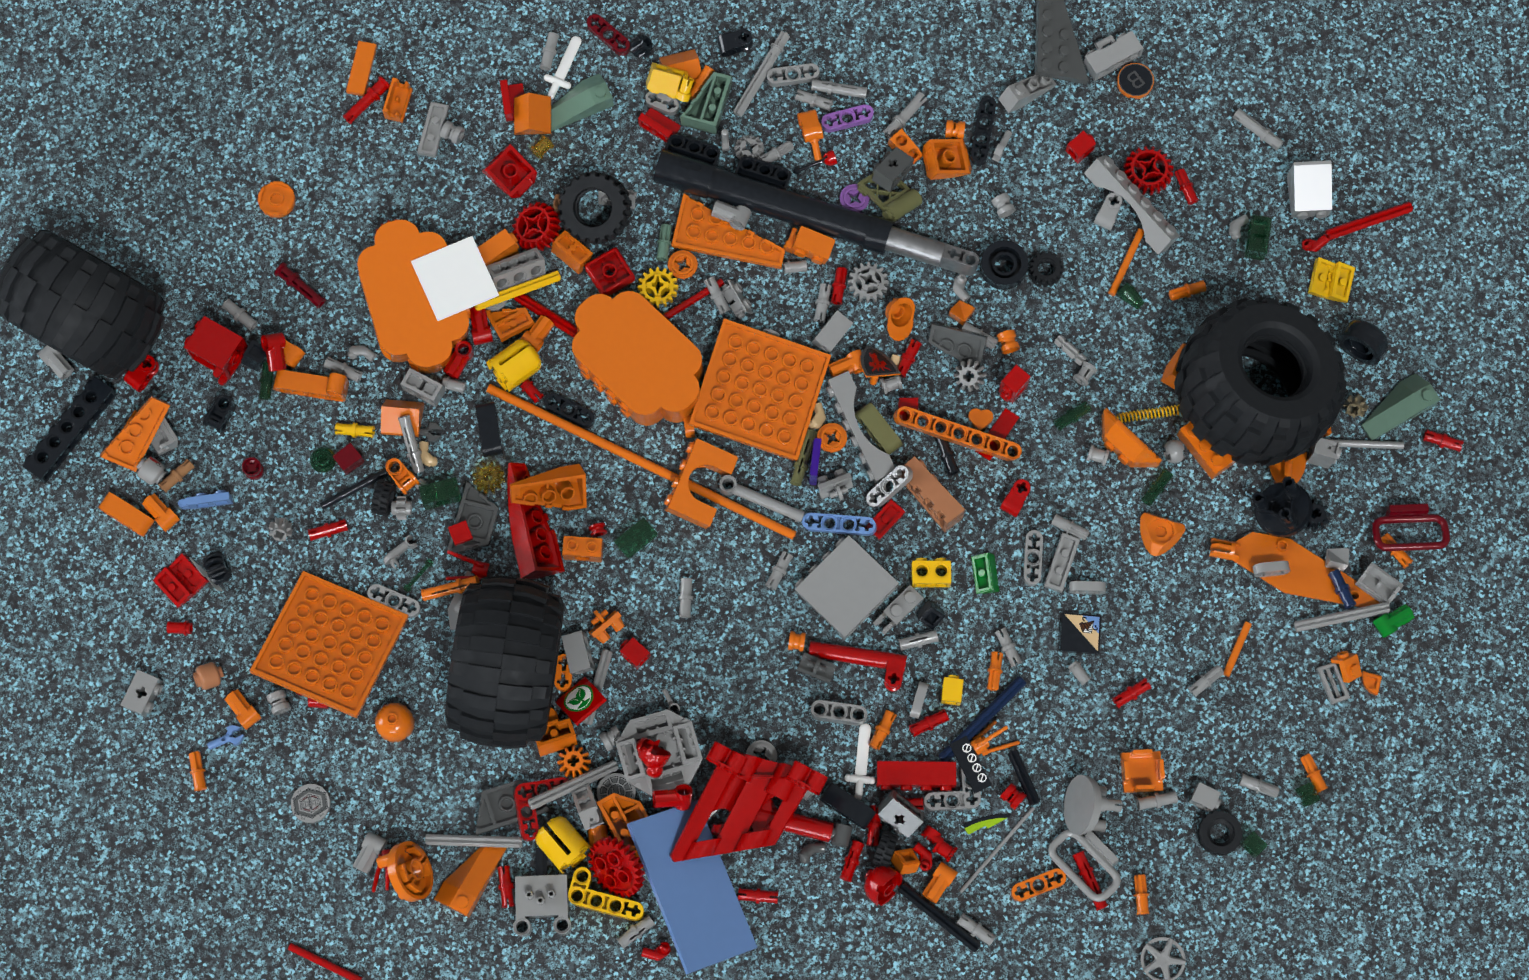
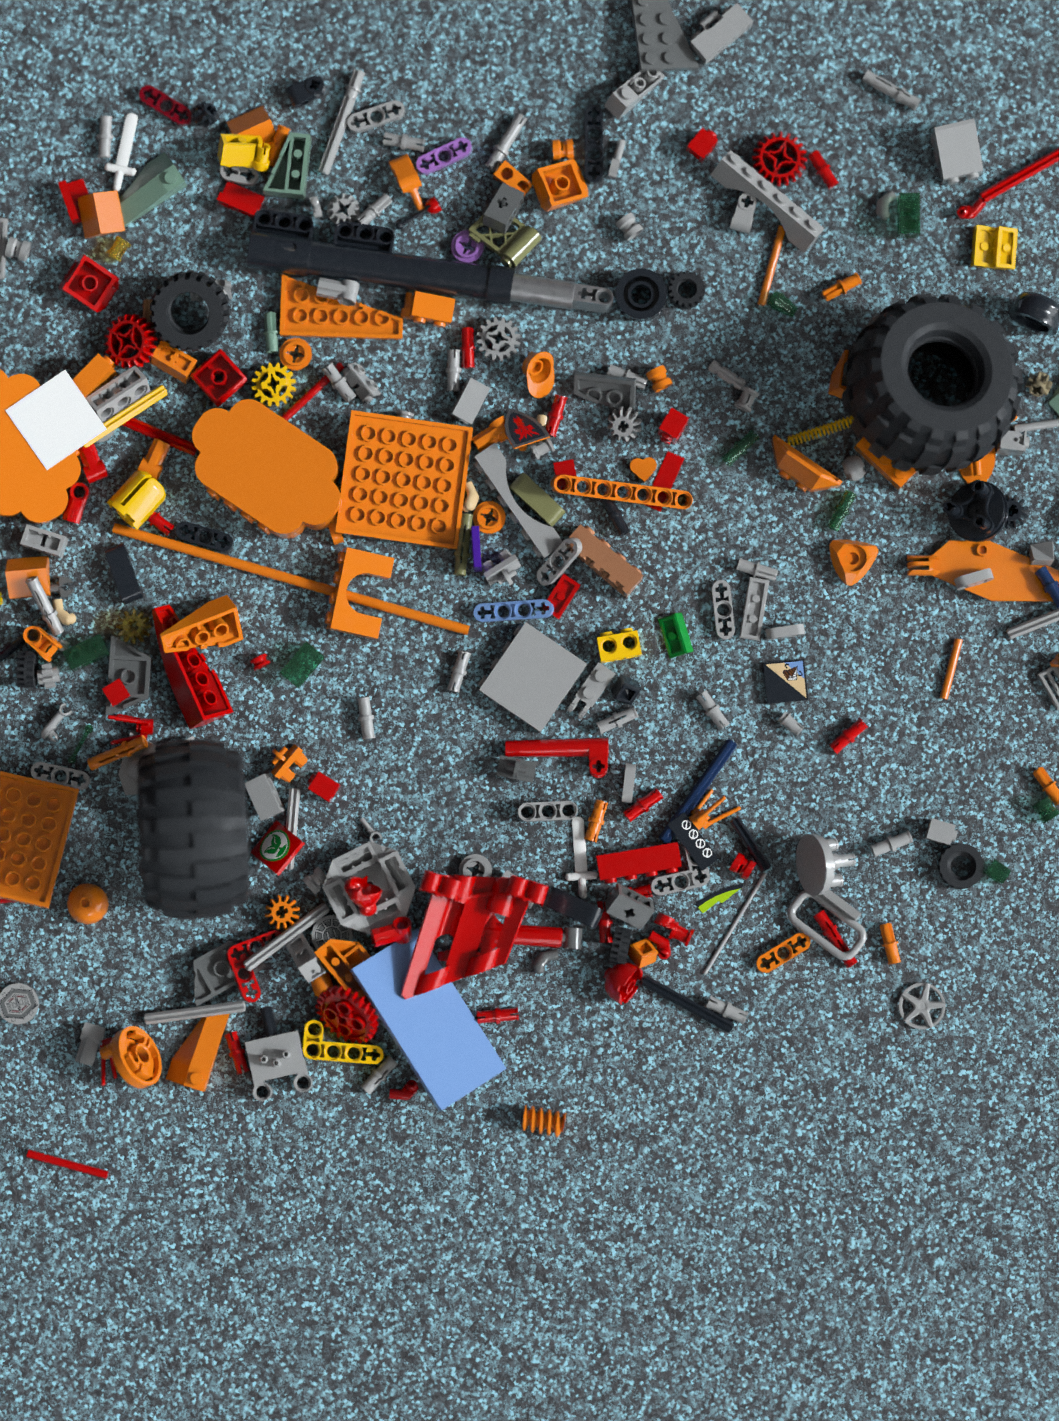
camera: 10 degrees left, 10 degrees up
(453, 385) = (76, 531): light grey pin -> none
(510, 322) = (122, 451): orange wing -> none
(555, 850) = (293, 992): yellow cylinder -> none
(557, 736) = (261, 887): orange brick -> none
(558, 676) = (259, 824): orange beam -> none
(582, 549) = (248, 685): orange brick -> none
(759, 499) = (427, 598): light grey piece -> none
(794, 267) = (416, 335): light grey pin -> none
(796, 641) = (490, 743): orange wheel -> none
(838, 88) = (419, 124): light grey pin -> none
(851, 861) = (587, 962): red pin -> none
(941, 879) = (683, 964): orange piece -> none
(952, 690) = (661, 766): yellow brick -> none
(958, 287) = (596, 326): light grey arm -> none
(961, 312) = (604, 353): orange slope -> none
(994, 671) = (702, 738): orange axle -> none
(1014, 500) = (693, 552): red piece -> none
(1097, 455) = (774, 486): light grey bush -> none
(1135, 80) = (749, 57): black tile -> none
(1142, 771) = (871, 816): orange panel -> none
(1206, 680) = (923, 708): light grey axle -> none
(1259, 786) = (994, 809): light grey axle -> none

